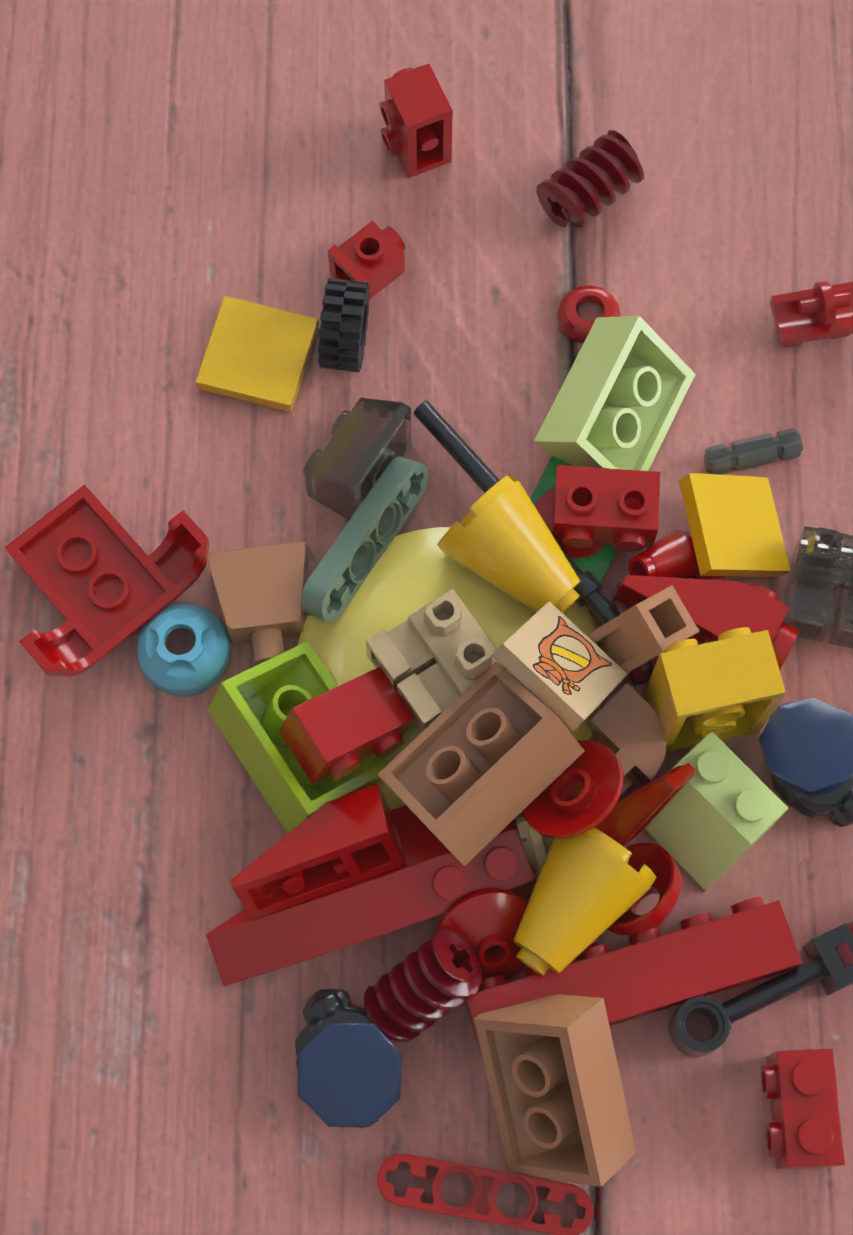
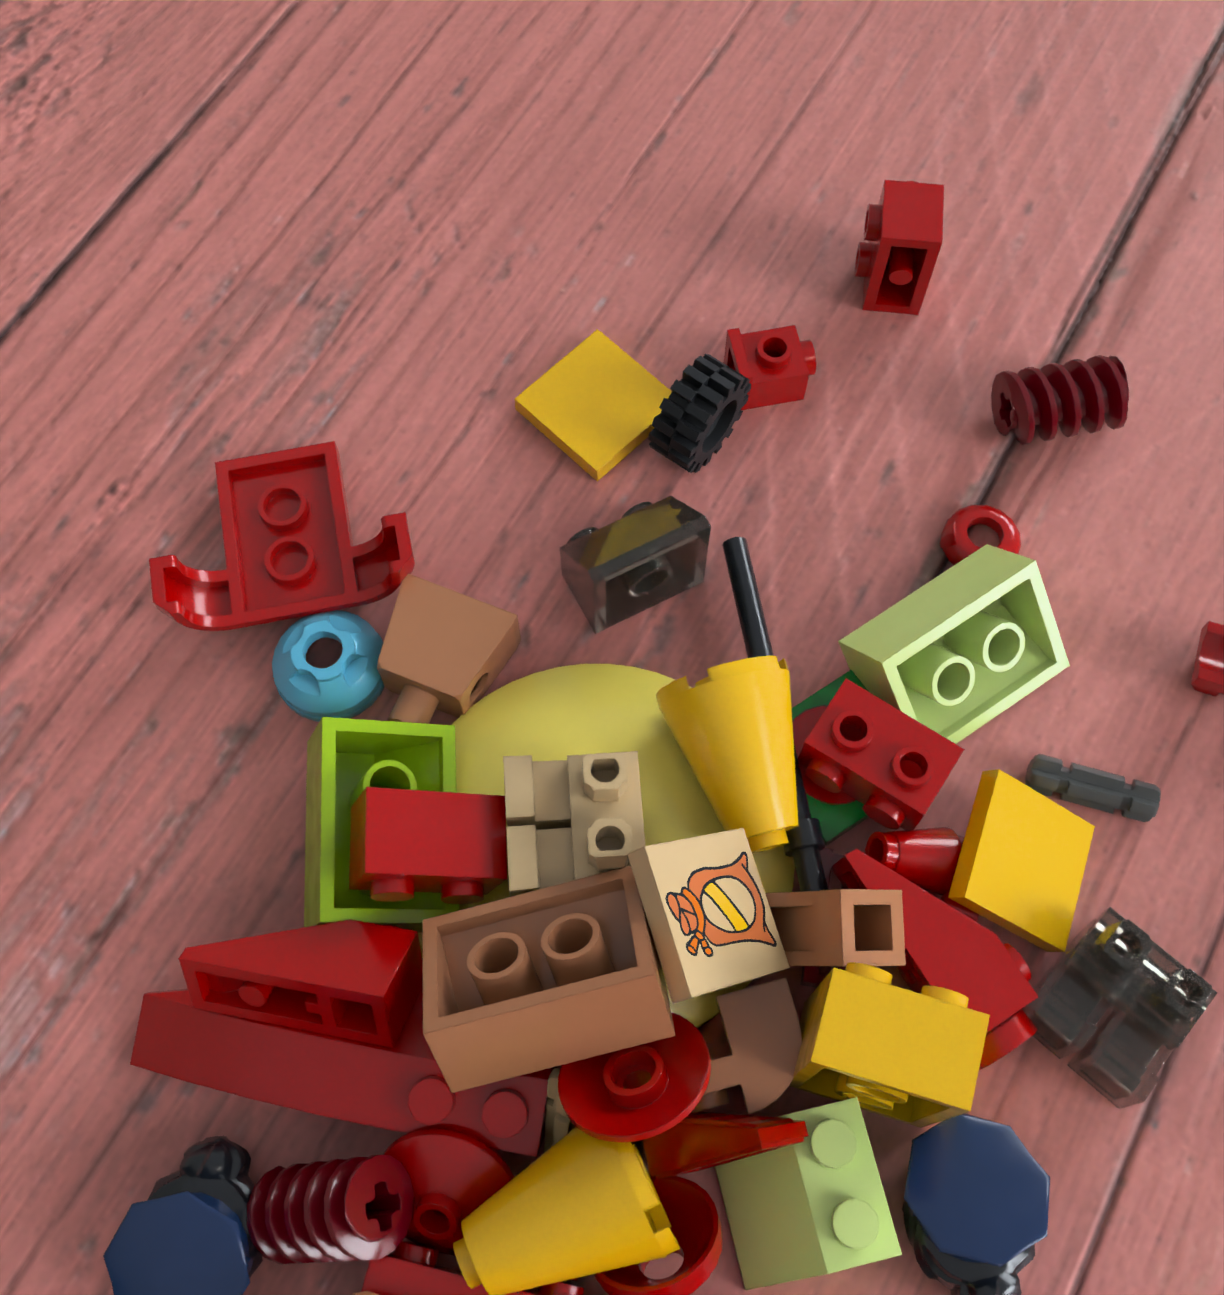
camera: 30 degrees right, 5 degrees down
(364, 539) = (653, 621): sand green beam -> none

